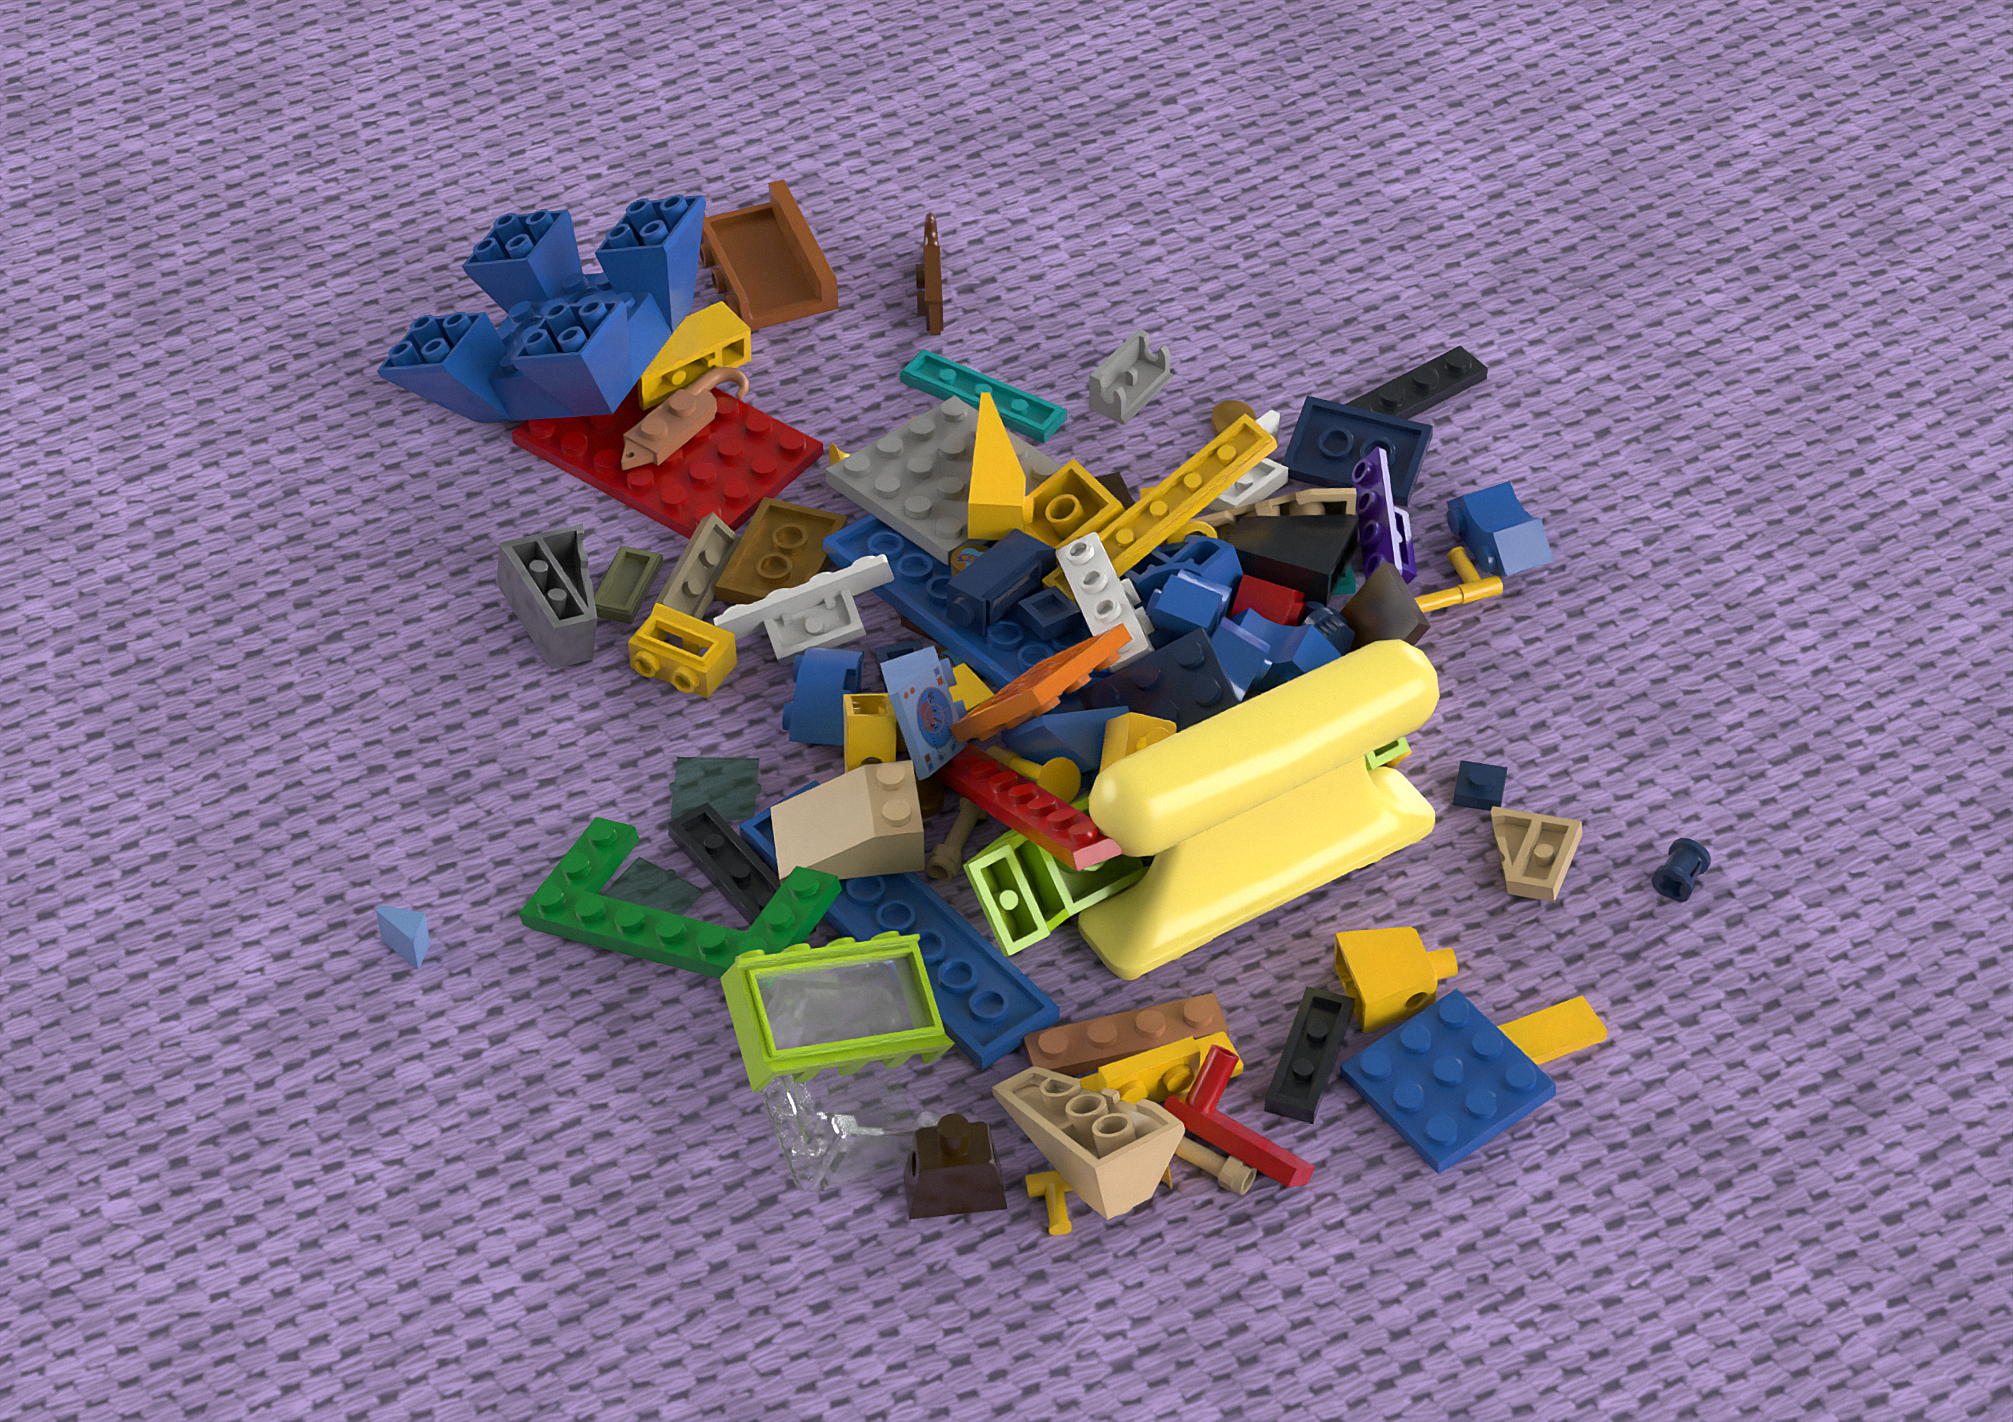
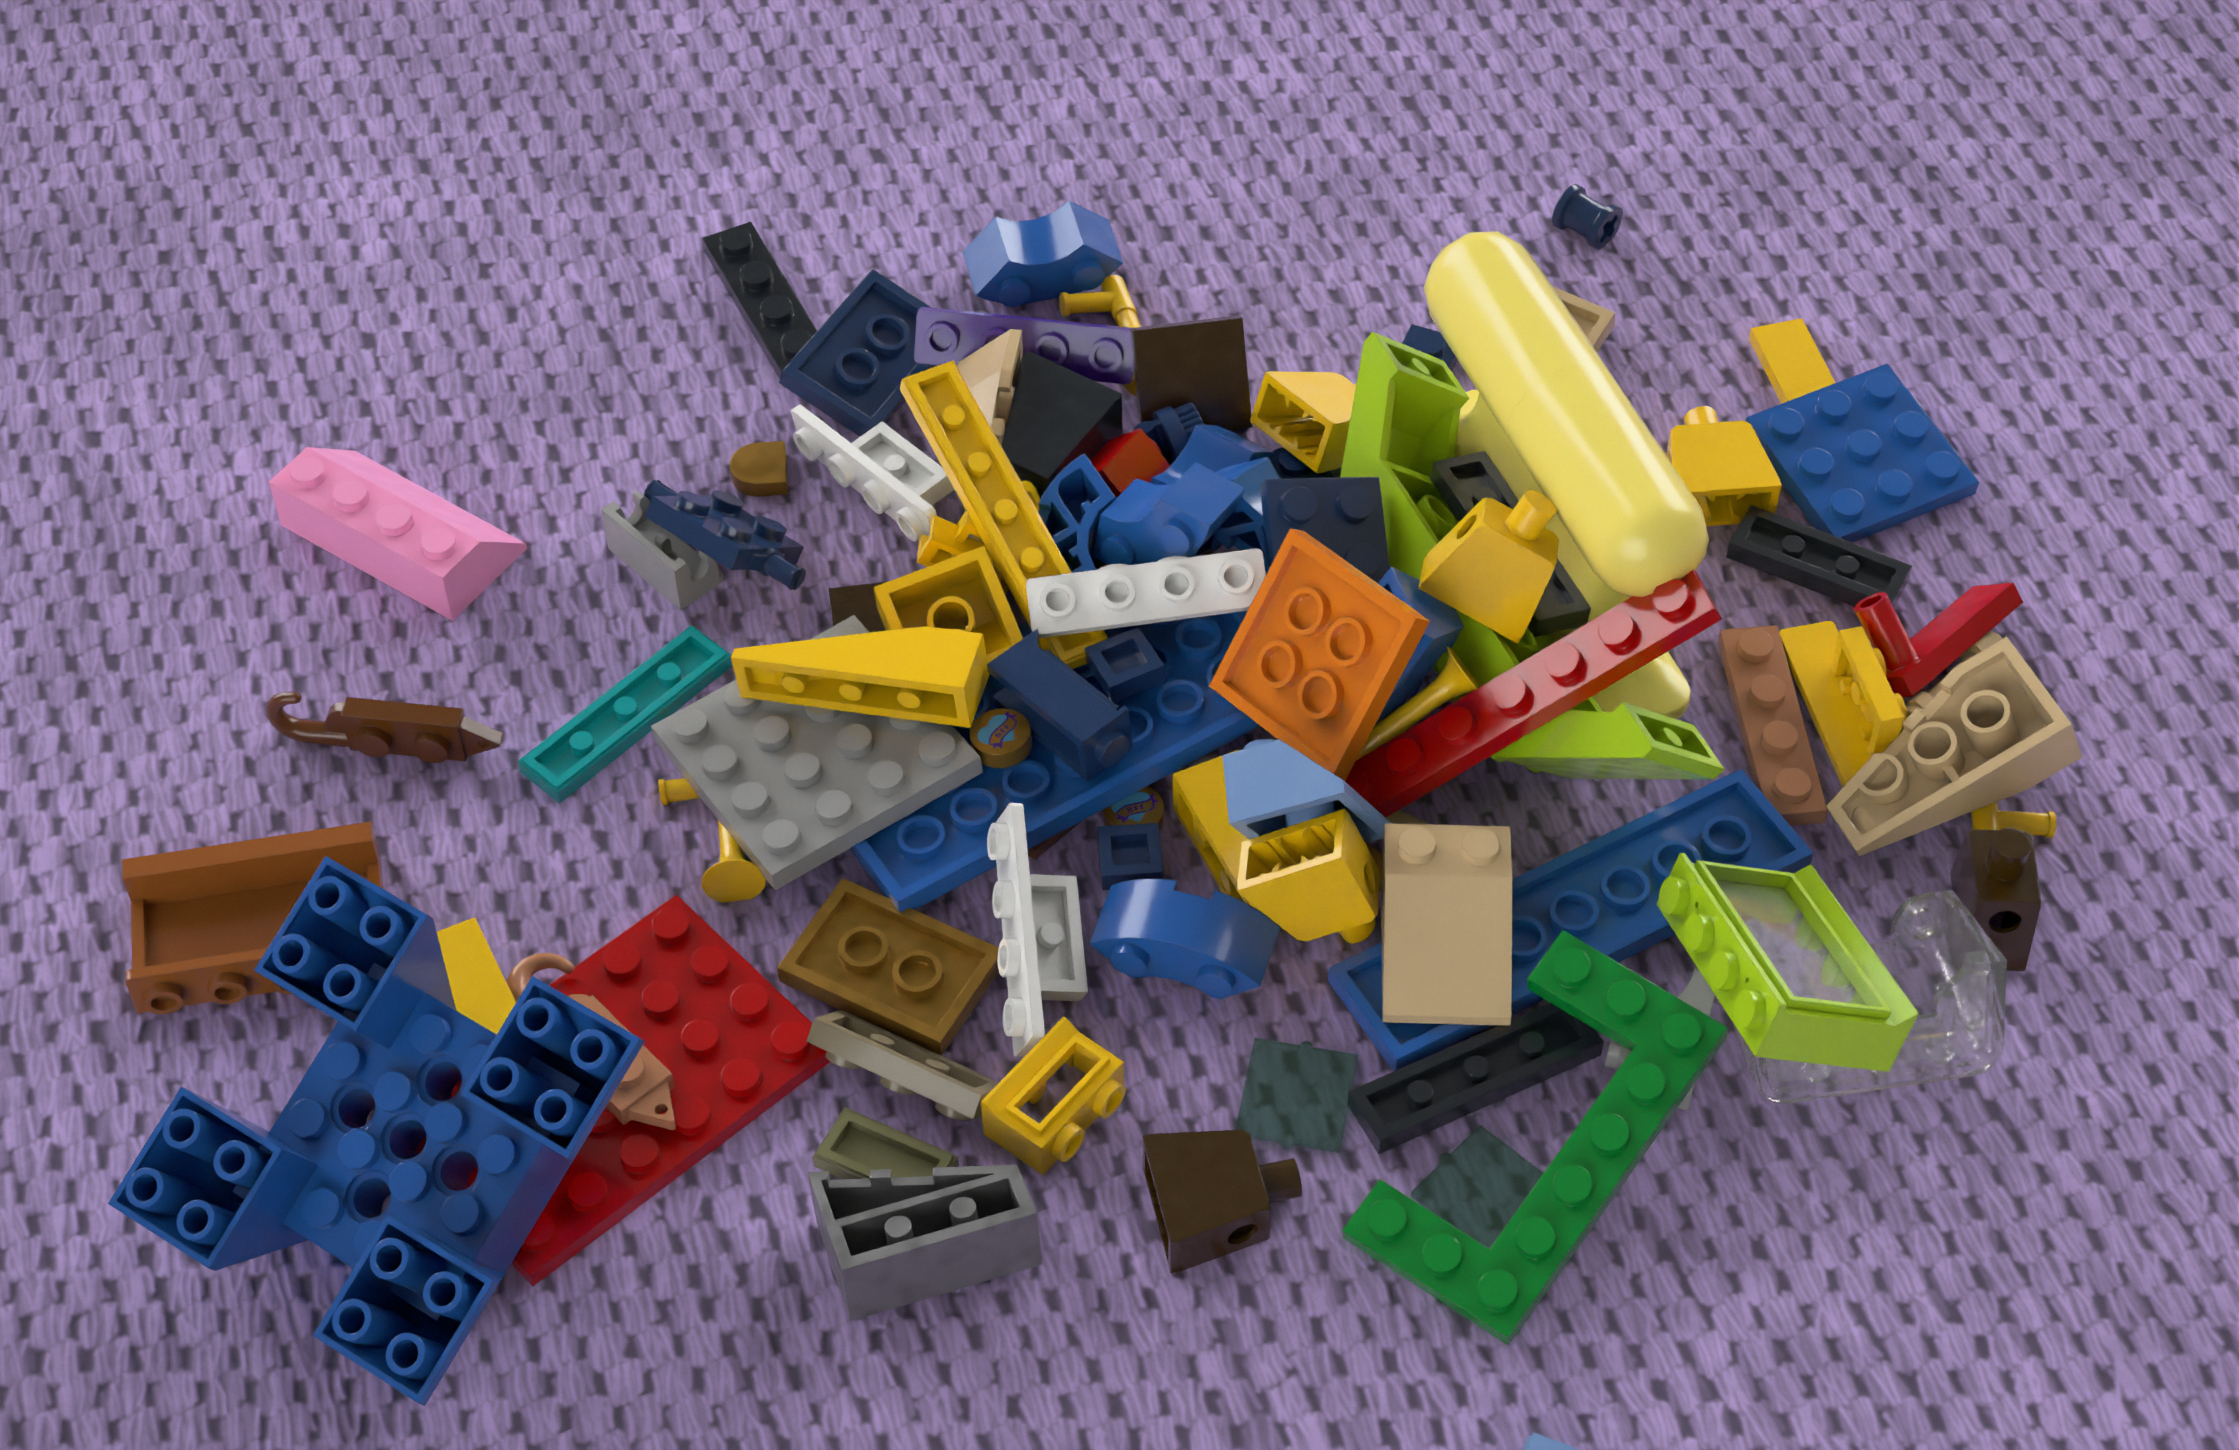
camera: 80 degrees left, 5 degrees up
(610, 740) = (1212, 1193): none -> dark brown torso
(1118, 246) = (391, 528): none -> bright pink slope
(1144, 401) = (727, 532): none -> dark blue plate

